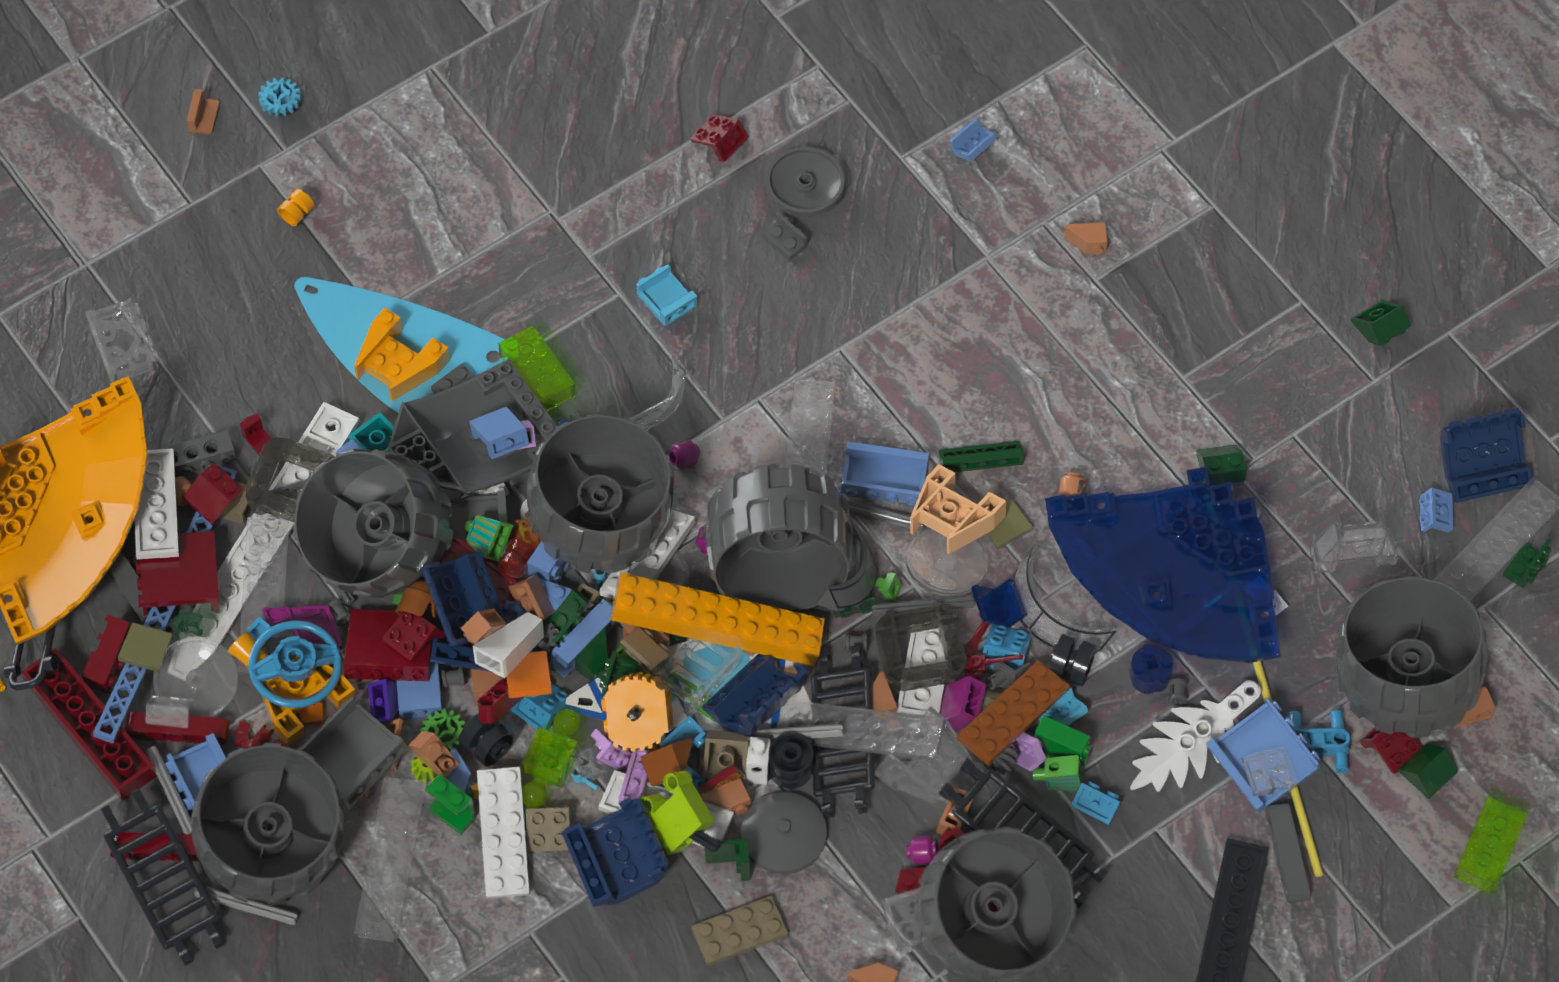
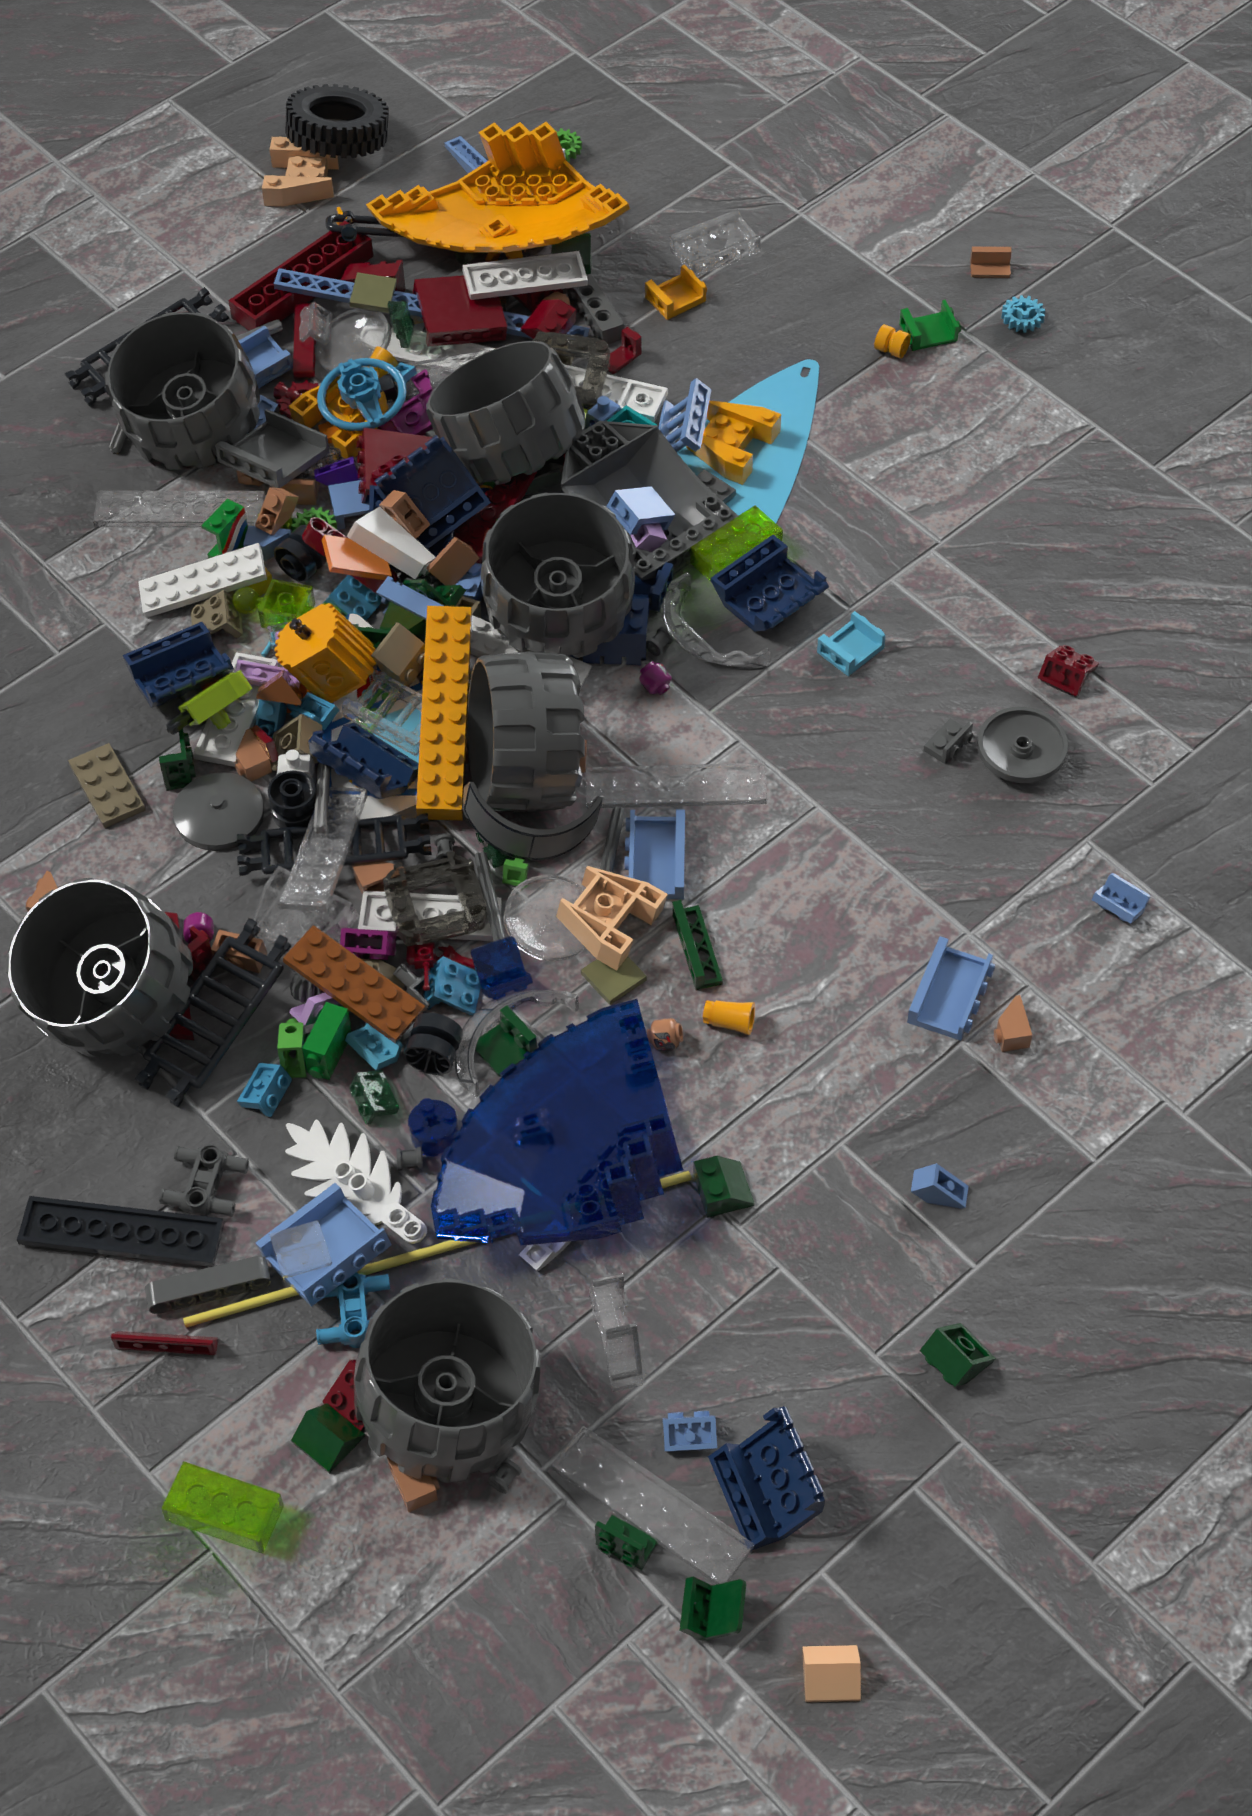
camera: 85 degrees right, 5 degrees down
(182, 383) = (676, 294): none -> light orange panel
(277, 174) = (930, 329): none -> green panel
(375, 372) = (692, 419): none -> medium blue fence
(597, 346) = (766, 585): none -> dark blue slope
(1047, 275) = (950, 991): none -> medium blue panel
(1059, 436) = (730, 1015): none -> light orange plant
(1071, 604) = (506, 1042): none -> dark green bracket
(1112, 717) = (373, 1095): none -> clear green bracket
(1187, 852) = (204, 1181): none -> dark grey piece
(1234, 313) = (939, 1187): none -> medium blue slope
(1336, 888) = (165, 1343): none -> dark red slope

